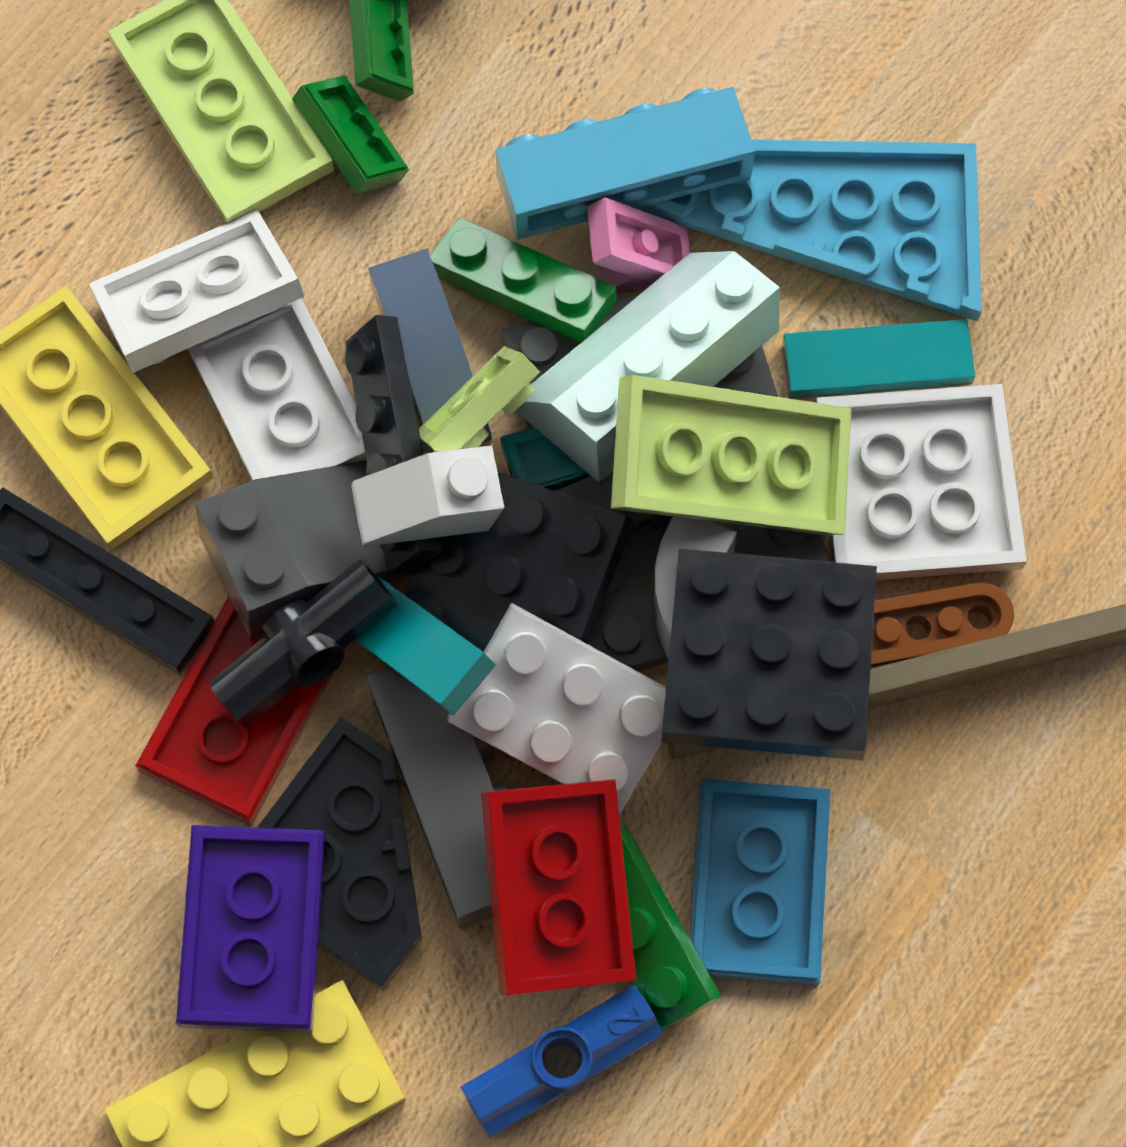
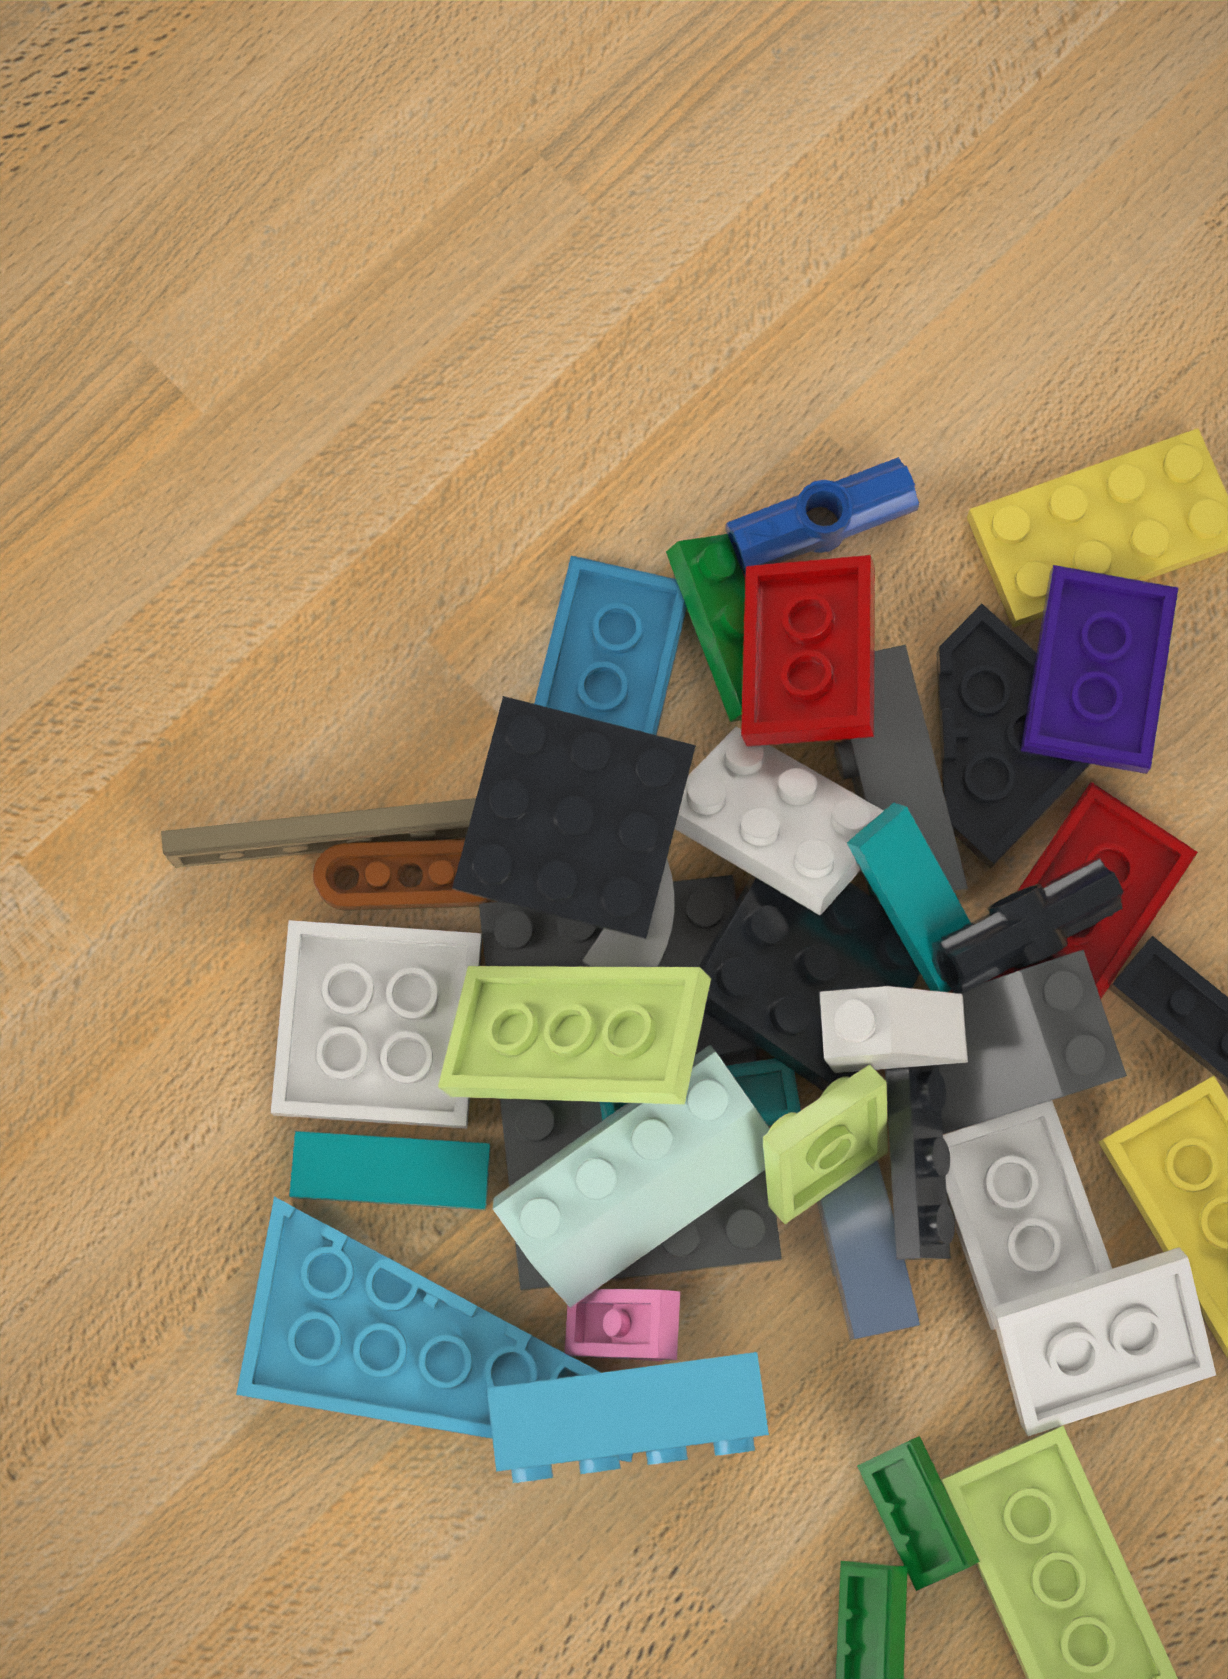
camera: 170 degrees left, 5 degrees up
(523, 280) = (754, 1306): plate -> none

